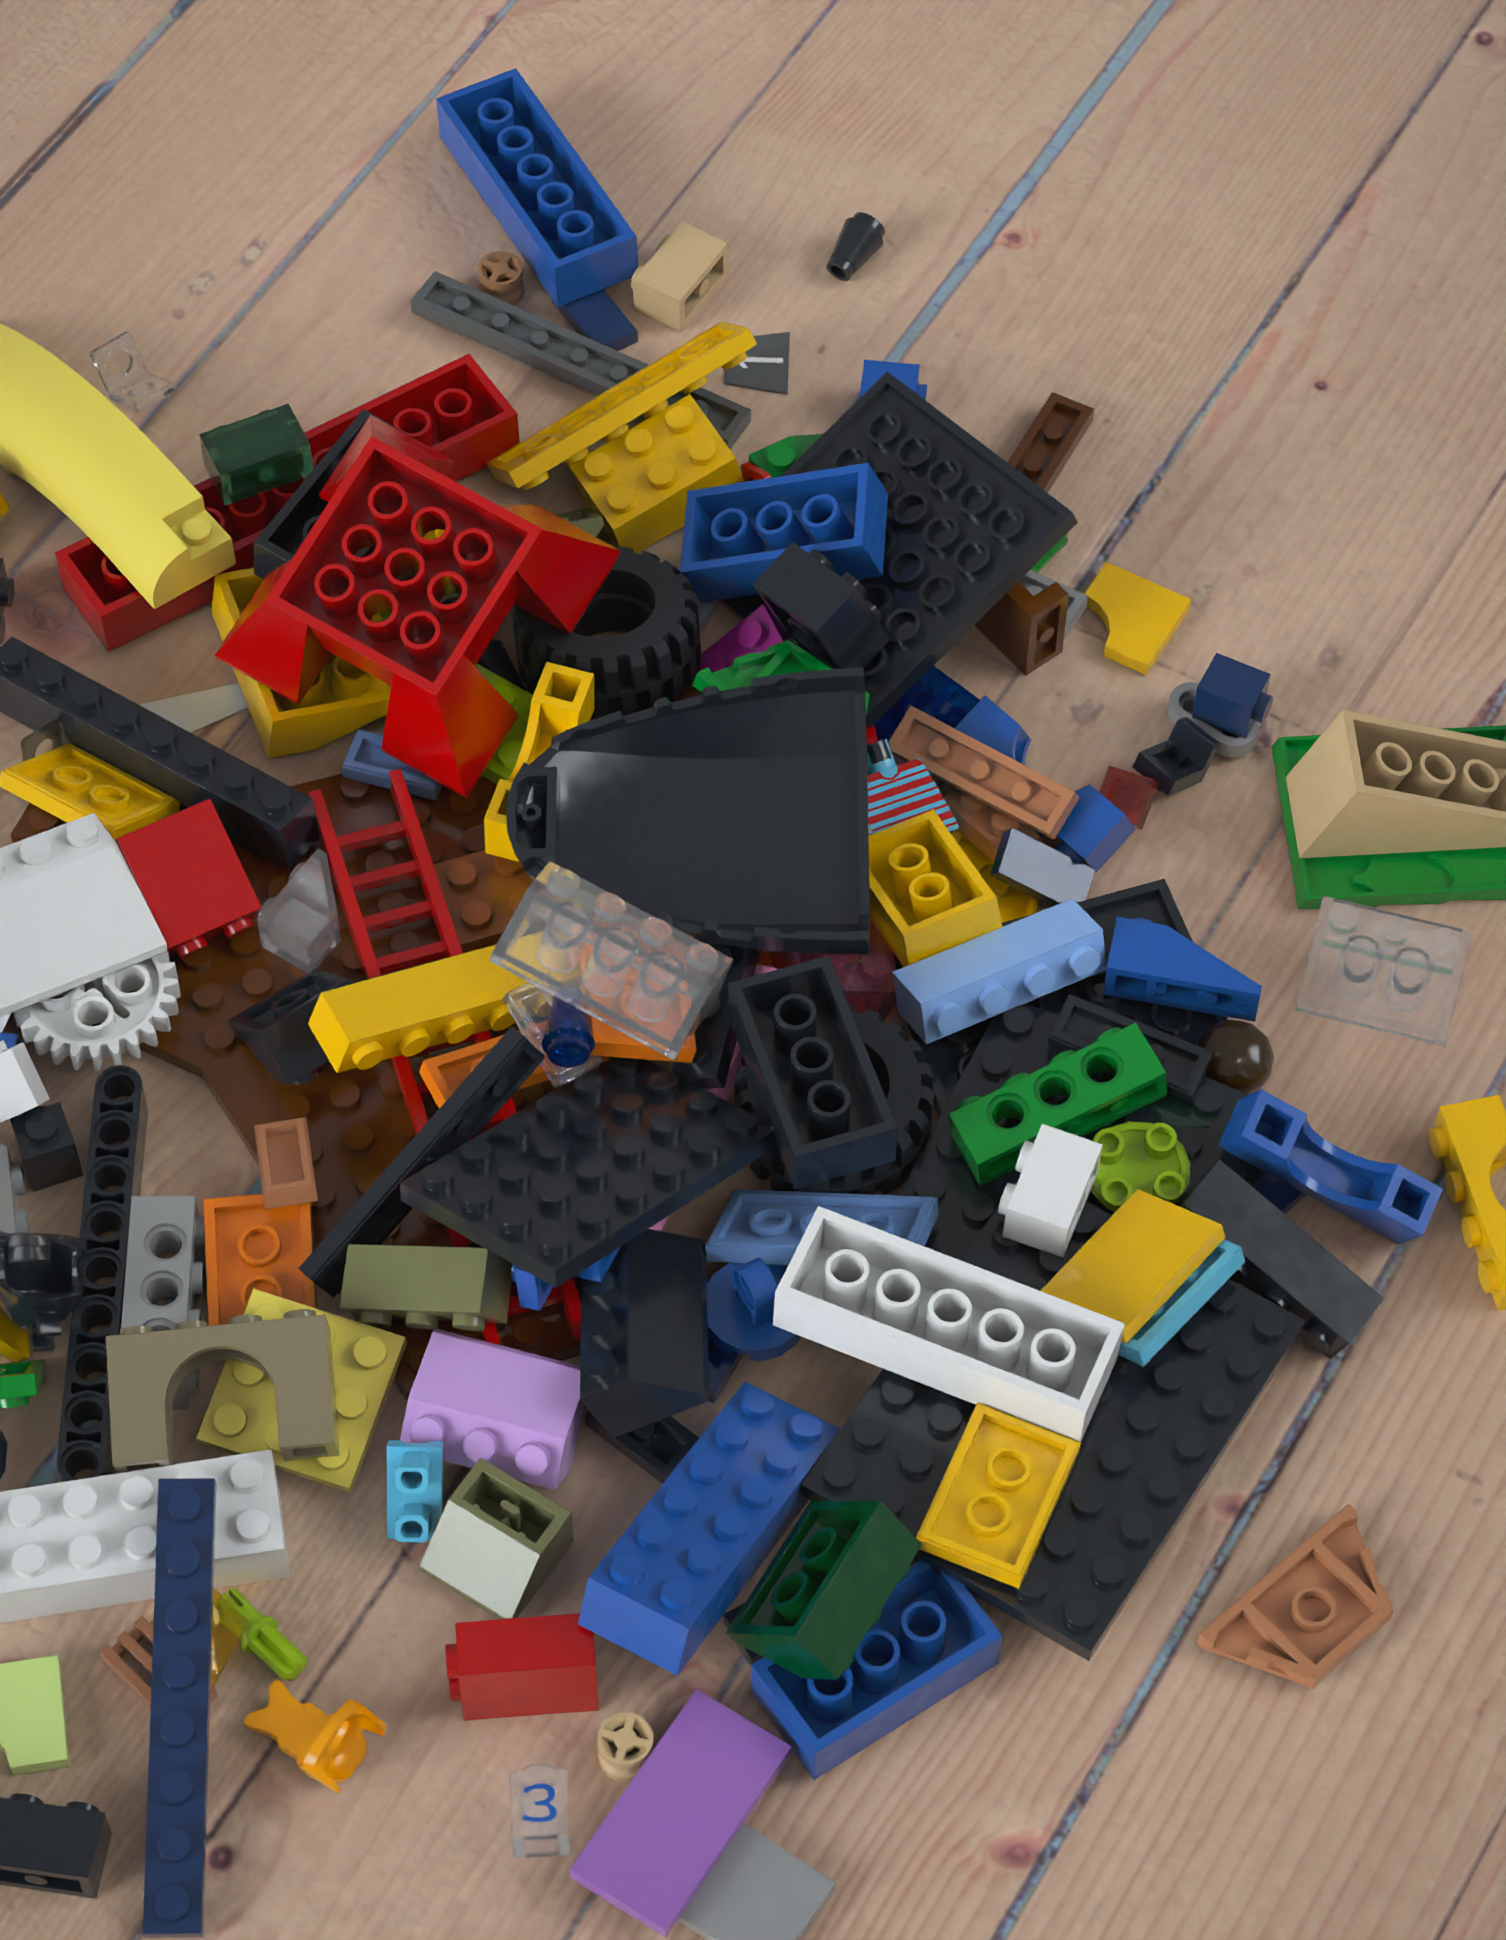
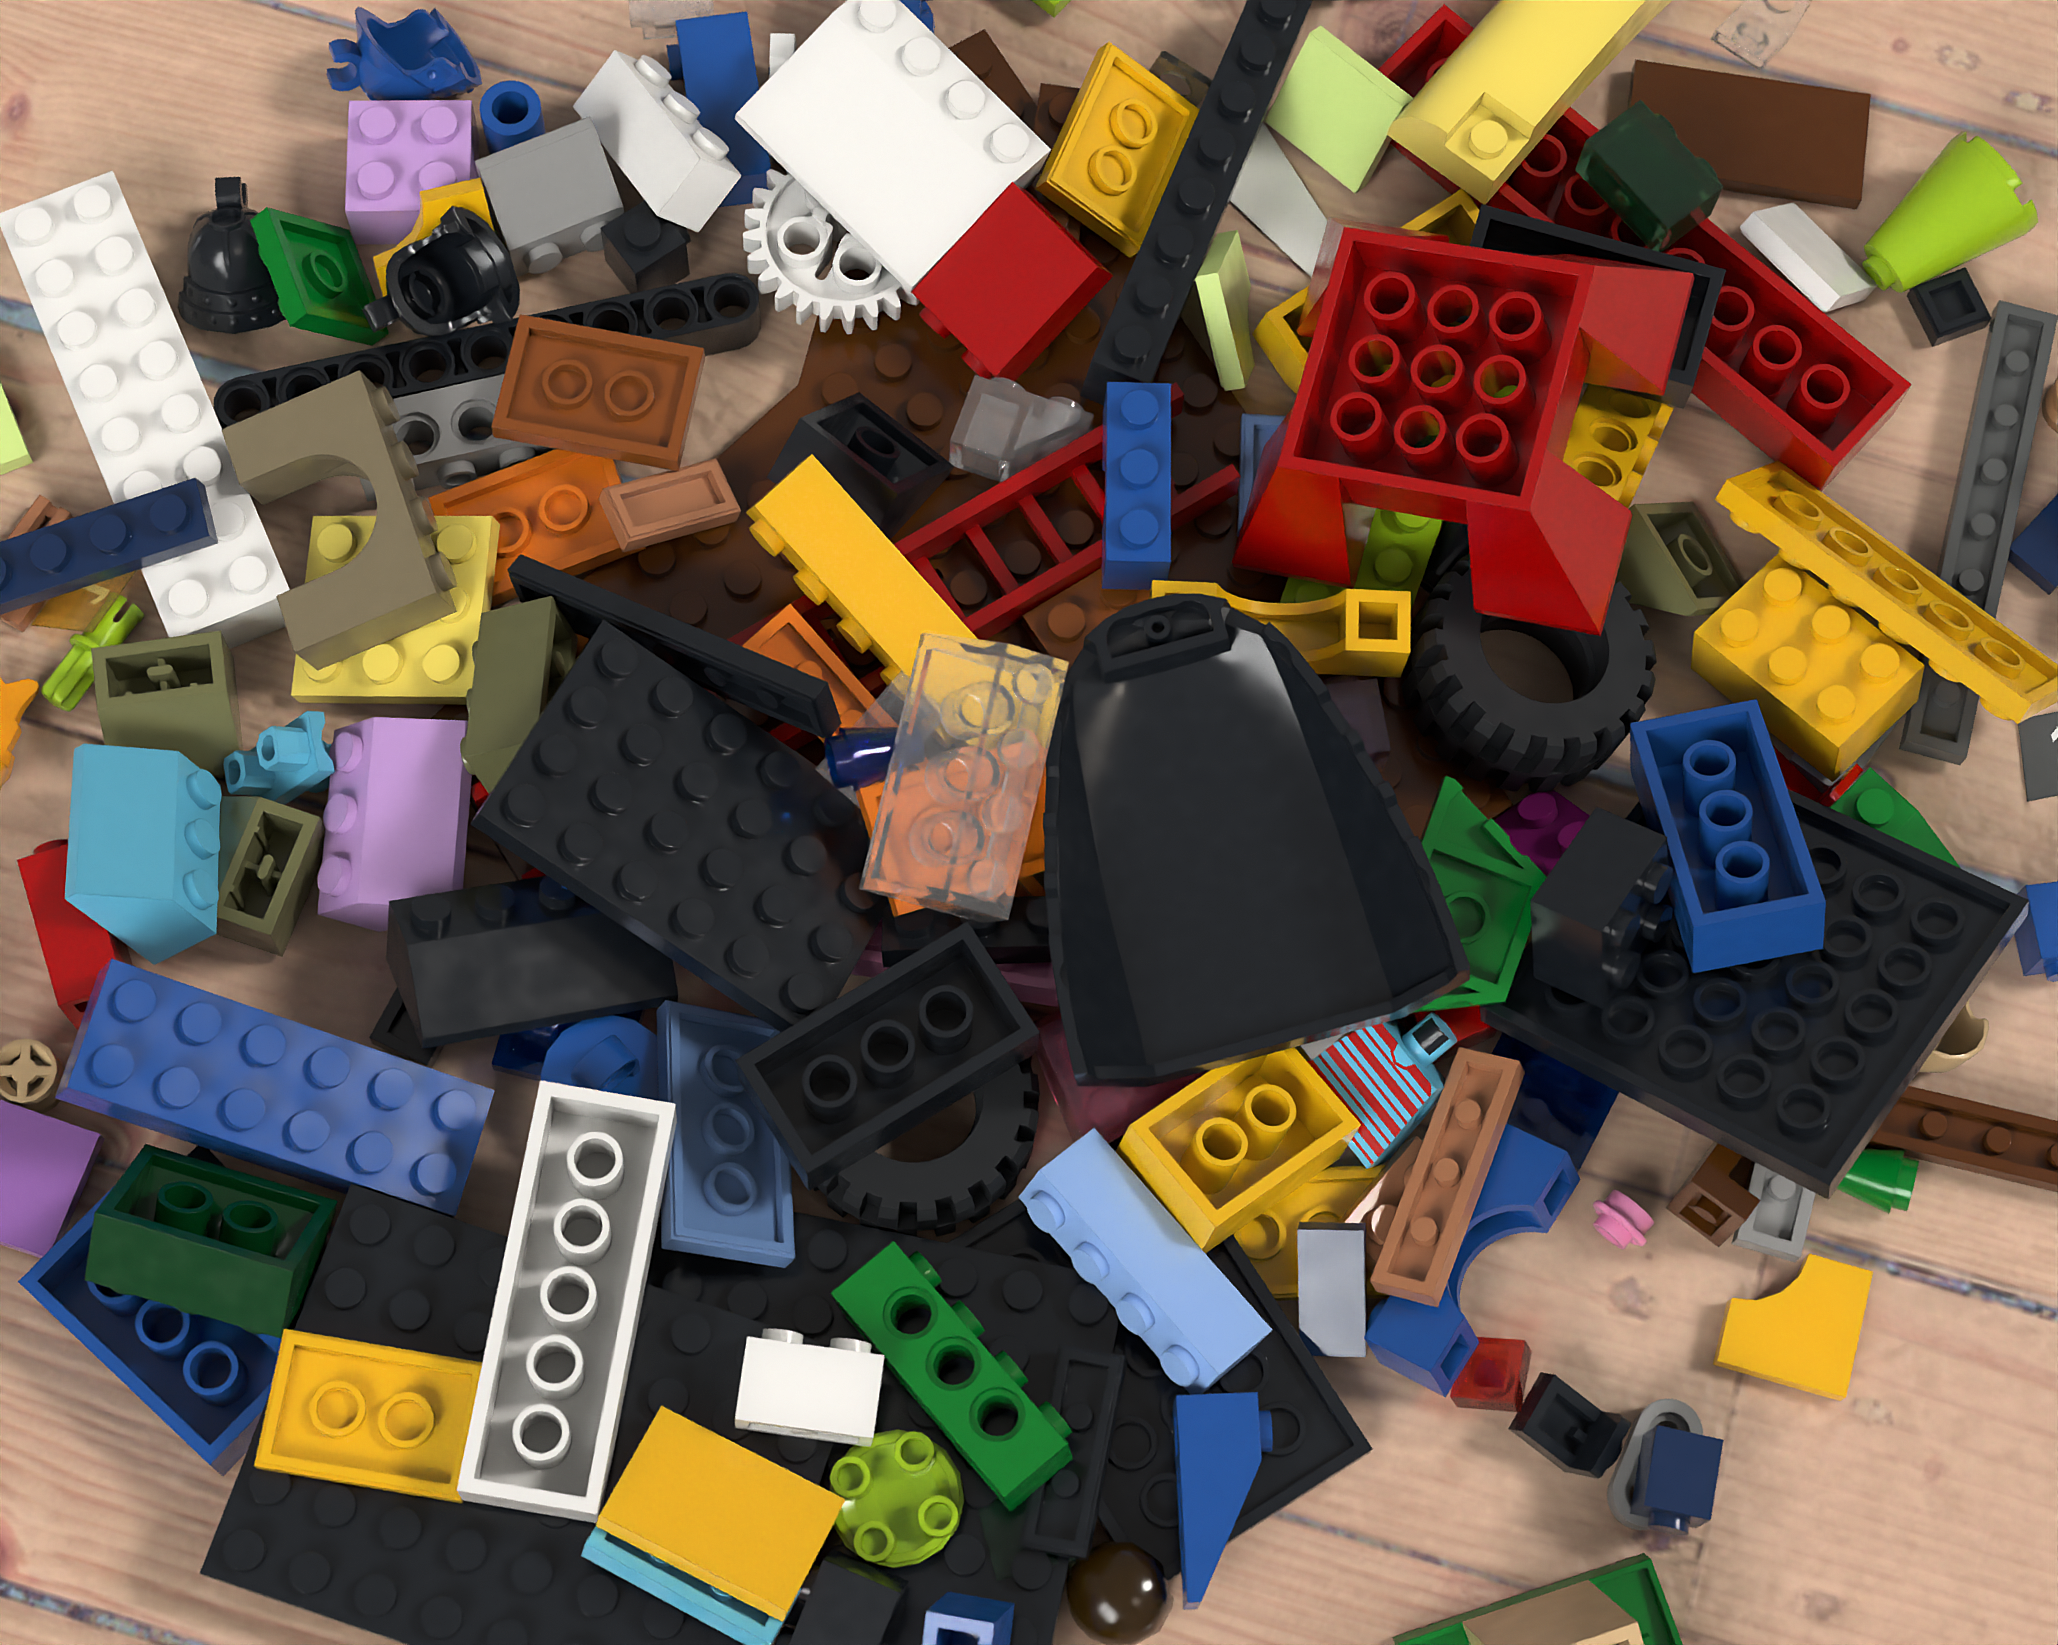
camera: 70 degrees right, 15 degrees up
(113, 641) = (1337, 109): none -> yellowish green tile
(175, 1185) = (598, 392): none -> dark orange plate
(224, 388) = (1763, 131): none -> reddish brown tile
(265, 757) = (1224, 298): none -> yellowish green tile
(337, 305) = (1949, 217): none -> lime cone
(338, 1575) = (171, 697): none -> olive slope
(342, 395) = (1807, 257): none -> white tile
(399, 337) = (1949, 307): none -> black tile
(431, 825) = (1136, 485): none -> blue arch
(470, 1582) = (144, 847): none -> medium azure slope
(1031, 695) = (1622, 1220): none -> bright pink plate

